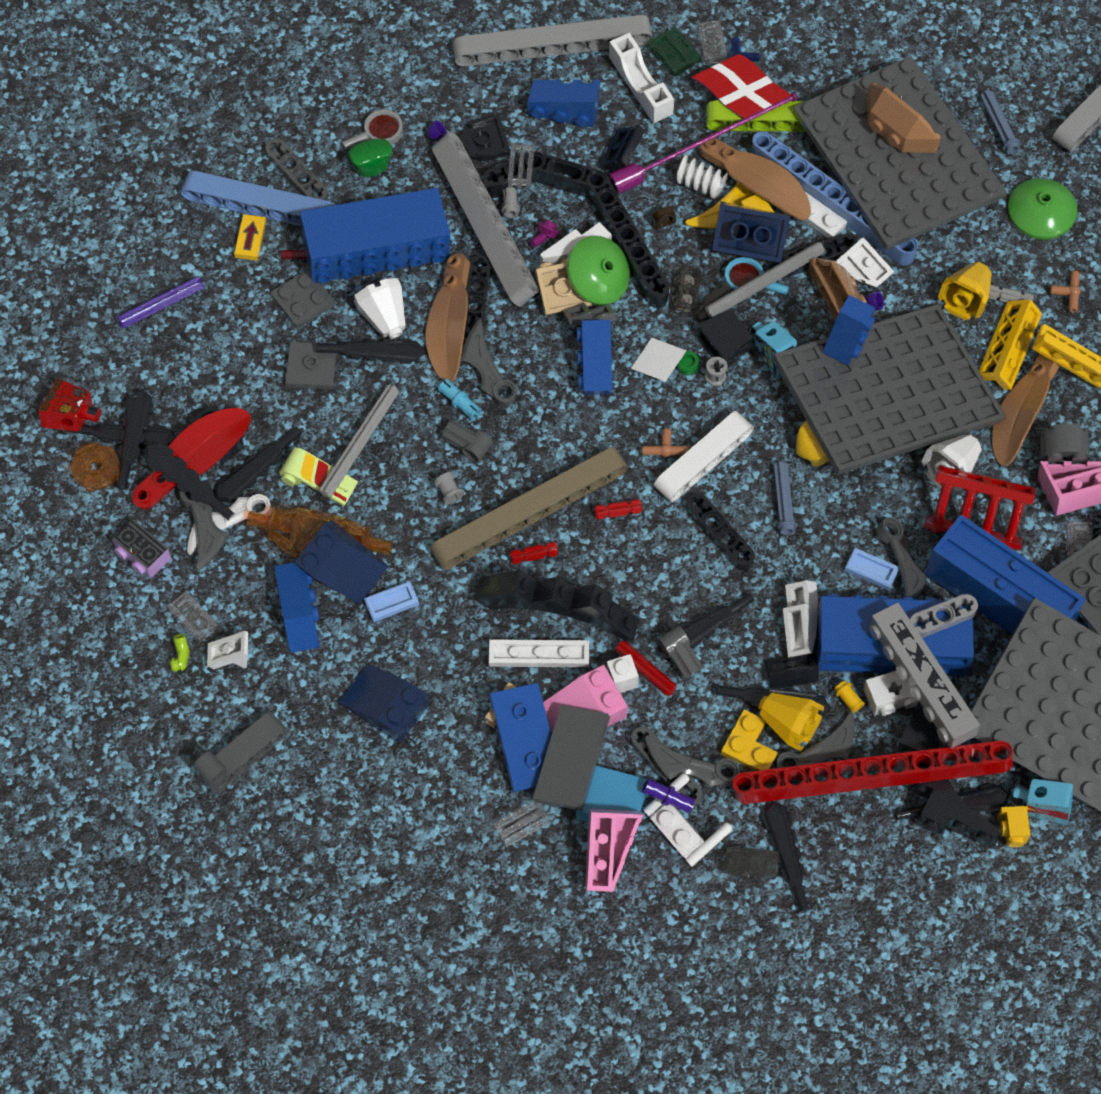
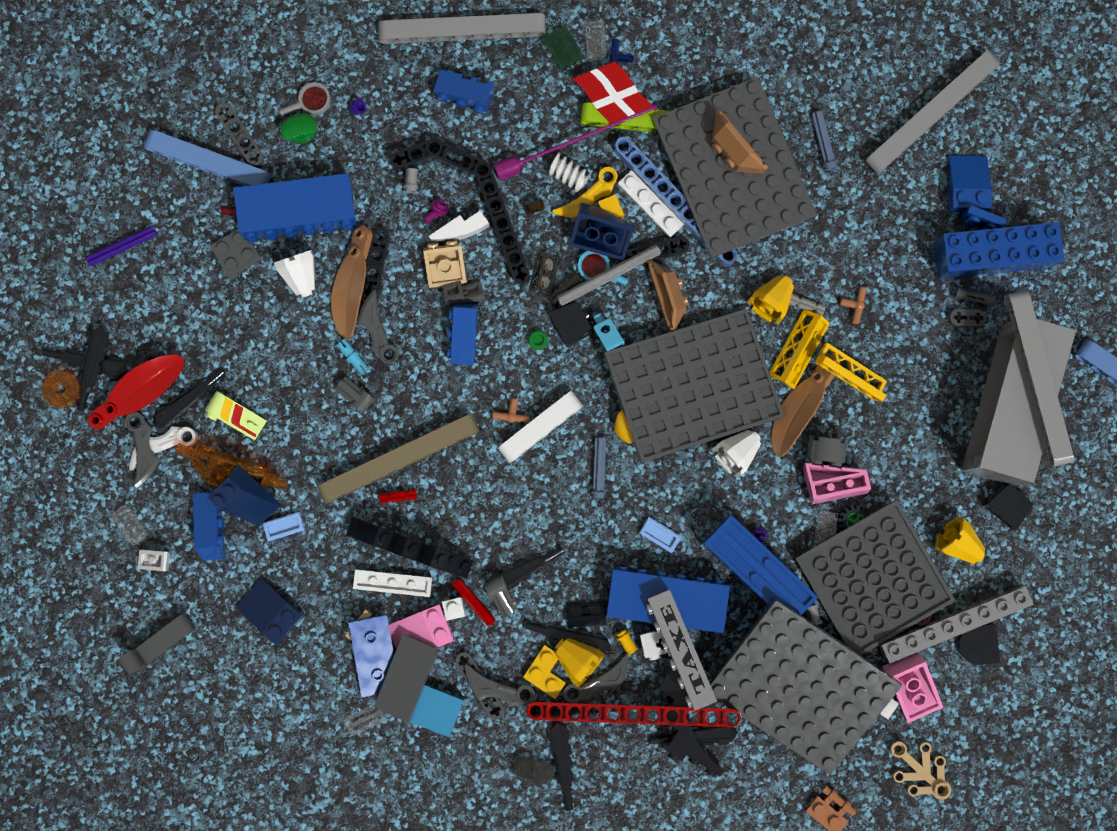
camera: 10 degrees right, 20 degrees up
(67, 407) = (40, 338): red torso -> none
(141, 549) = (92, 466): brick -> none
(175, 470) = (120, 404): black sword -> none
(182, 652) = (119, 556): lime arm -> none
(250, 237) = (198, 192): yellow tile -> none
(310, 368) = (238, 314): dark grey plate -> none
(359, 441) = (269, 388): light grey axle -> none
(388, 350) = (300, 307): black sword -> none
(448, 488) = (336, 435): light grey bush -> none
(485, 139) = (396, 117): black tile -> none
(485, 219) = (388, 195): light grey beam -> none
(521, 182) = (418, 168): clear tile -> none
(588, 271) = (464, 254): bright green dish -> none
(607, 846) = (426, 752): bright pink wedge -> none
(618, 509) = (465, 465): red axle -> none
(622, 148) = (507, 139): black plate -> none
(629, 62) = (530, 74): white arch -> none
(658, 359) = (515, 335): white sticker -> none
(668, 795) = (476, 715): dark purple pin -> none
(680, 831) = (482, 736): white plate -> none
(719, 532) = (548, 490): black beam -> none
(721, 368) = (555, 348): light grey bush -> none
(760, 176) = (617, 179): medium nougat plant -> none
(801, 617) = (598, 575): white slope -> none
(850, 330) = (666, 344): blue wedge -> none
(865, 264) = (691, 266): white wing -> none
(875, 299) = (695, 300): dark purple hinge -> none
(912, 575) = (690, 544): dark grey piece -> none
(950, 607) = (717, 589): light grey beam -> none
(973, 484) = (756, 485): red fence -> none
(1014, 825) = (736, 761): yellow brick -> none
(1038, 217) = (837, 233): bright green dish -> none
(1047, 800) = (772, 747): medium azure torso -> none

